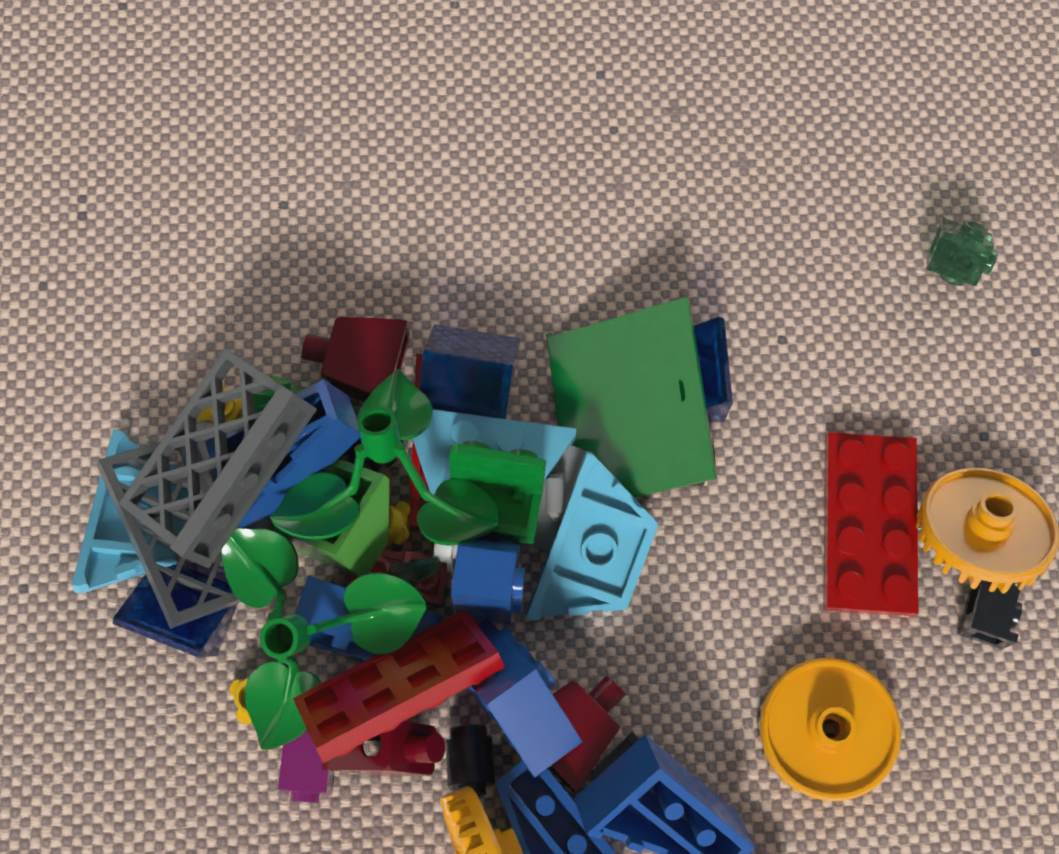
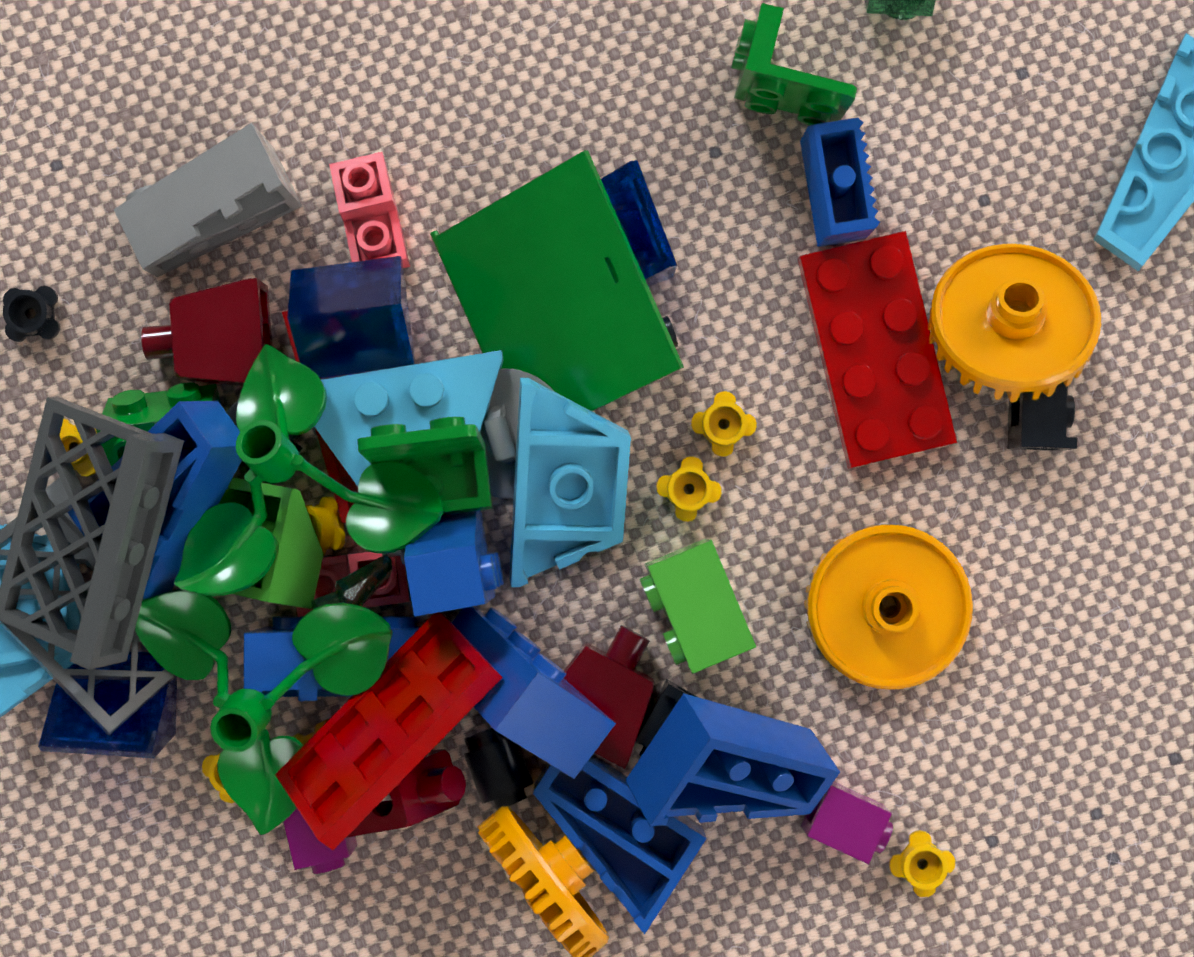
camera: 15 degrees left, 15 degrees up
(223, 289) = (15, 310): none -> black plate
(389, 258) = (207, 202): none -> light grey wedge
(506, 299) = (368, 208): none -> coral slope
(674, 671) = (699, 606): none -> bright green slope
(703, 589) = (689, 473): none -> yellow plate
(736, 530) = (723, 408): none -> yellow plate
(850, 303) = (775, 87): none -> green bracket
(874, 384) = (838, 182): none -> blue brick

